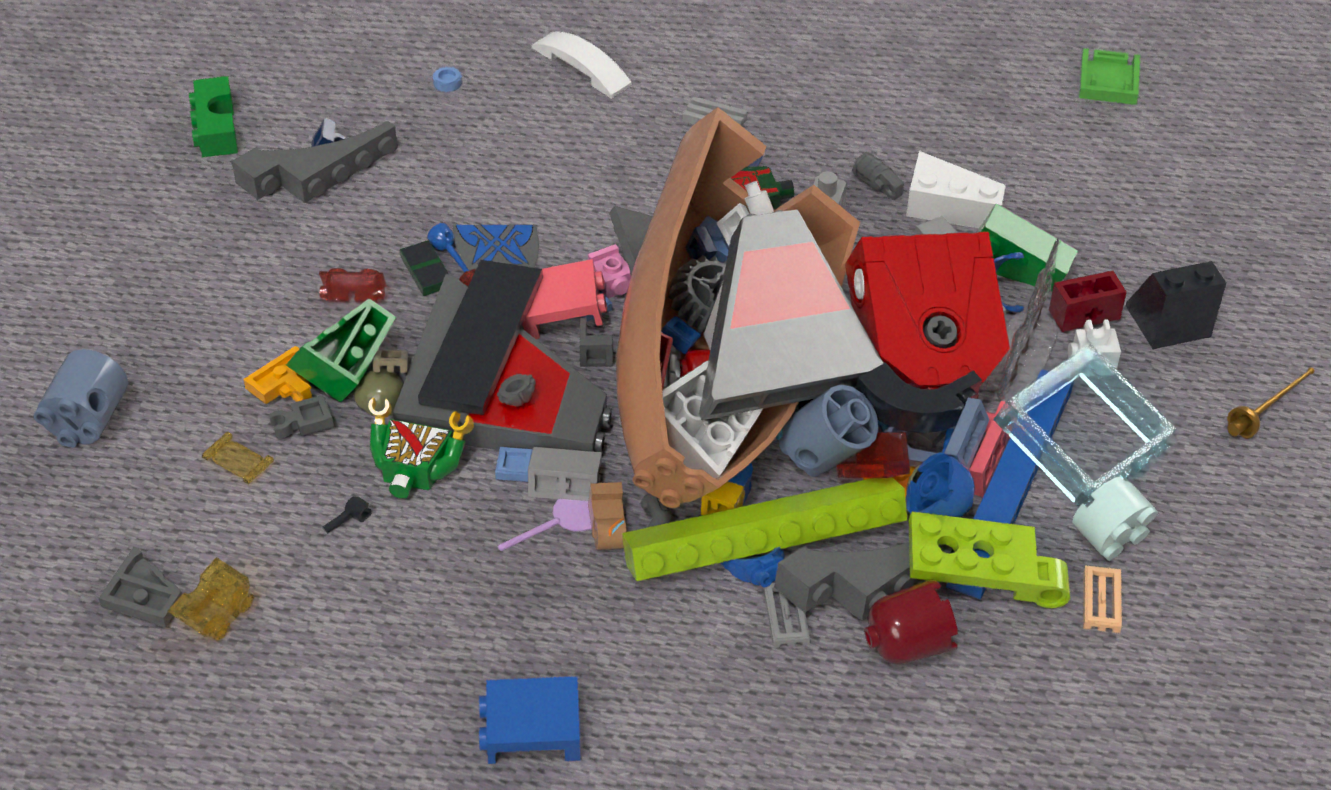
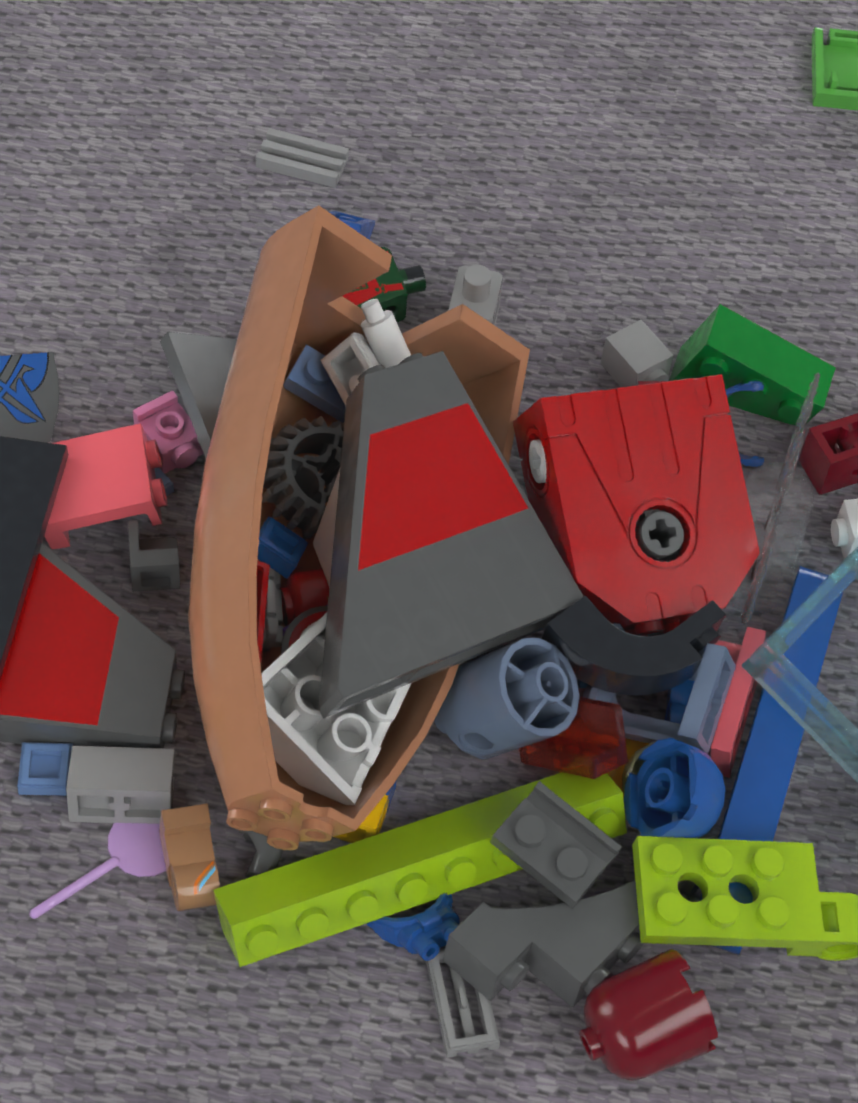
camera: 10 degrees left, 10 degrees up
(517, 390) = (41, 656): dark grey animal -> none
(587, 58) = (110, 71): white slope -> none
(700, 244) = (300, 398): dark blue tile -> none
(855, 514) = (555, 844): none -> dark grey plate
(878, 175) = (543, 249): dark grey hinge -> none
(951, 192) = (652, 278): white wedge -> none

